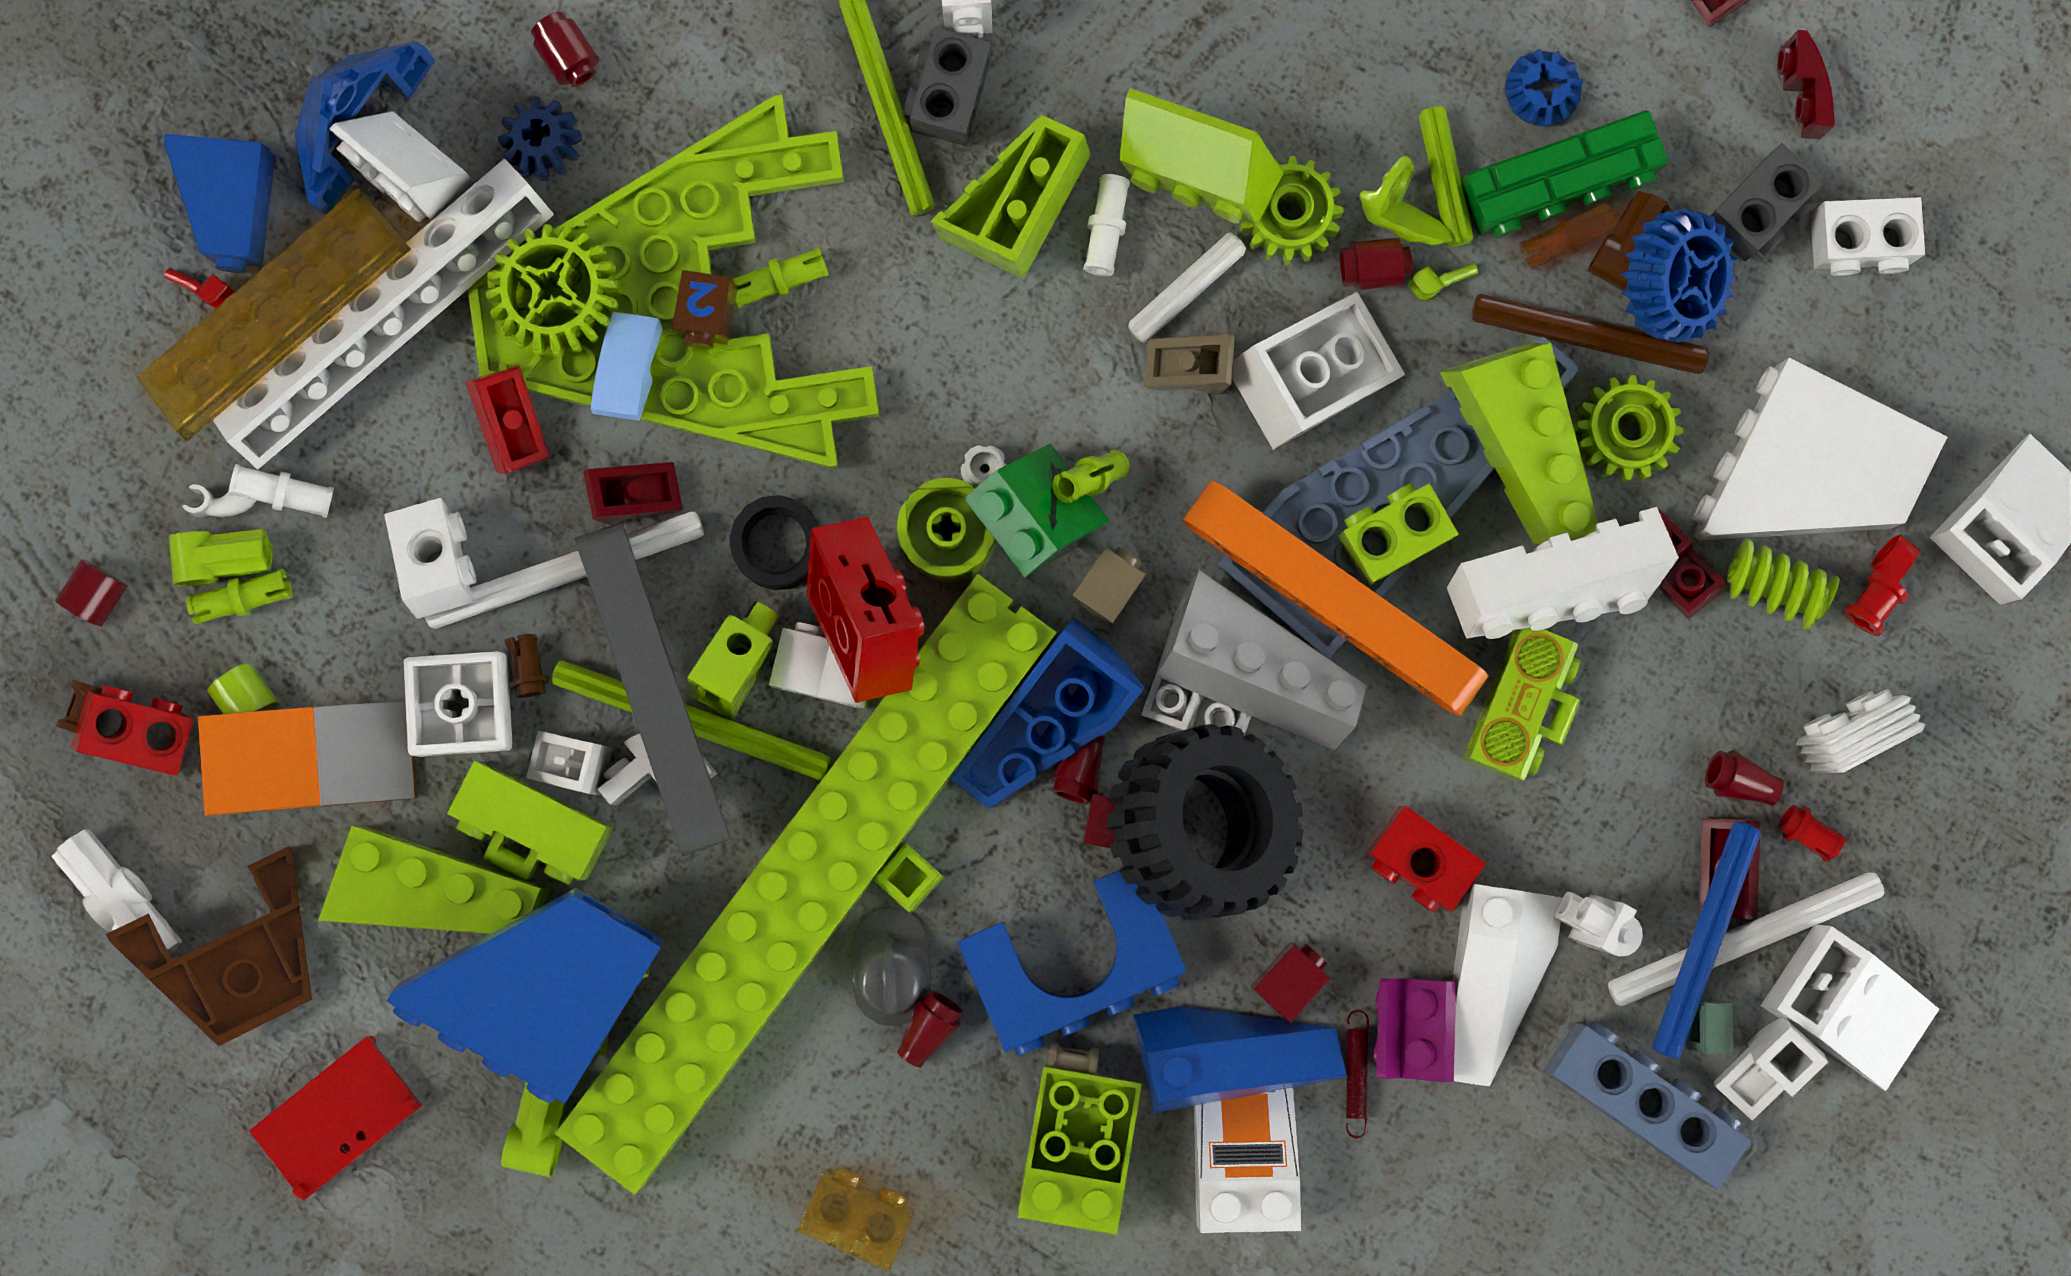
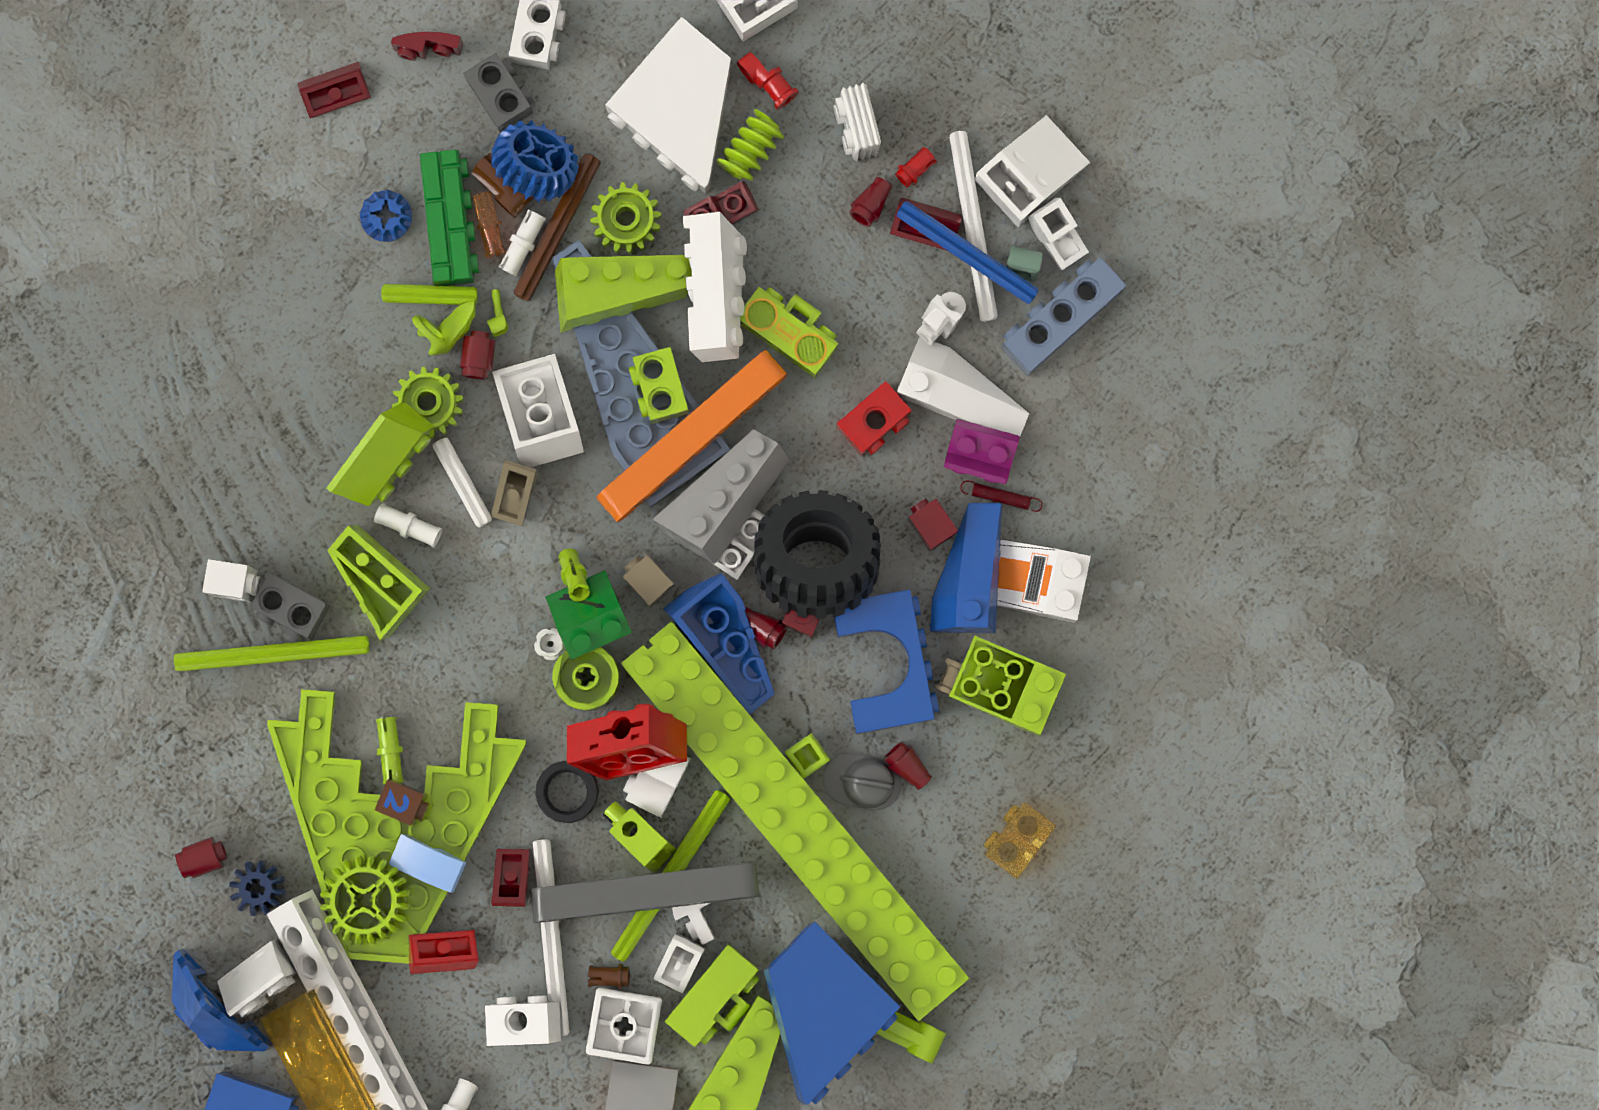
camera: 75 degrees left, 0 degrees up
(1554, 289) = (522, 243): none -> white pin

